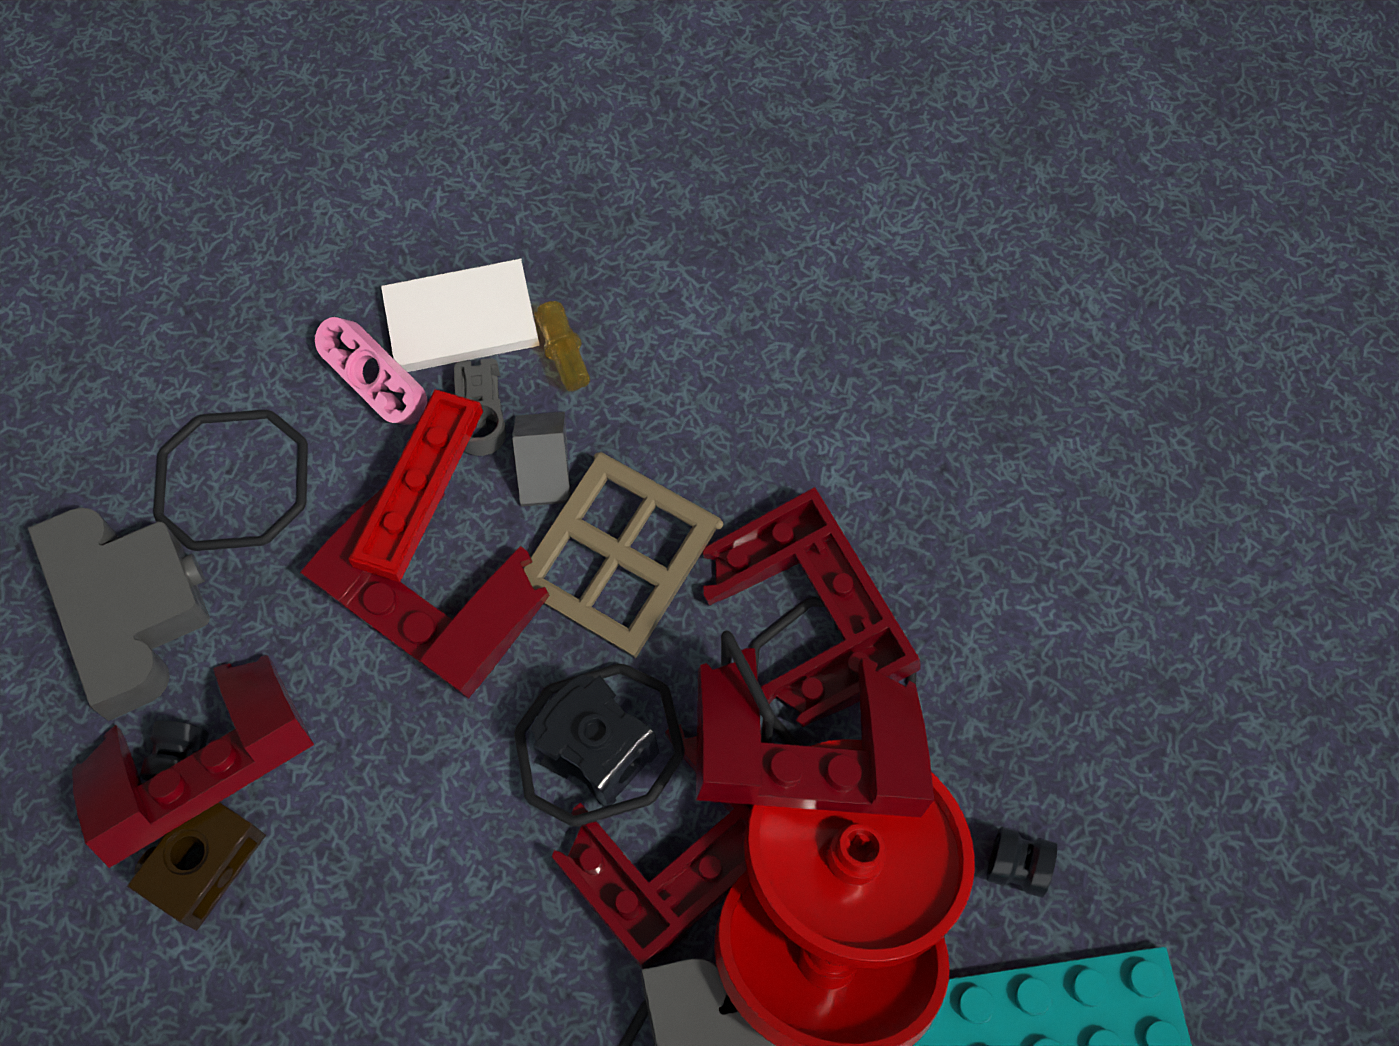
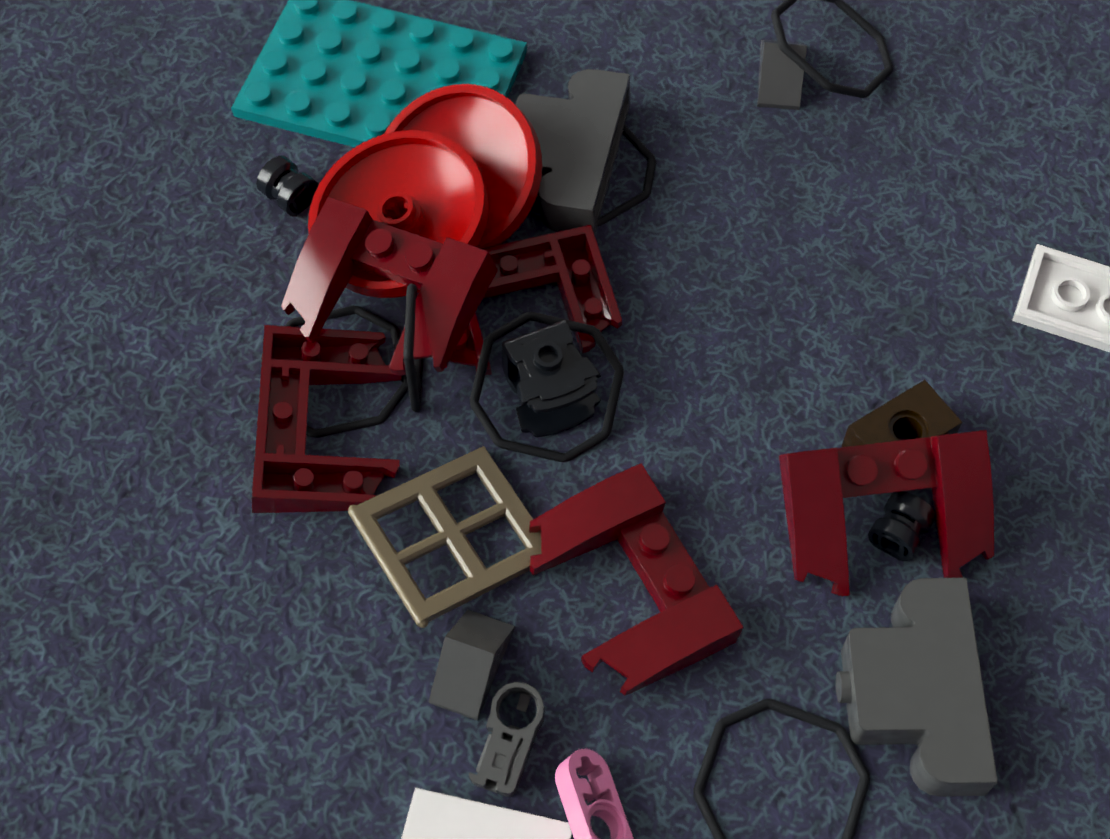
camera: 155 degrees left, 5 degrees down
(416, 486) = (601, 659): red tile -> none
(562, 345) = (395, 767): clear yellow axle -> none

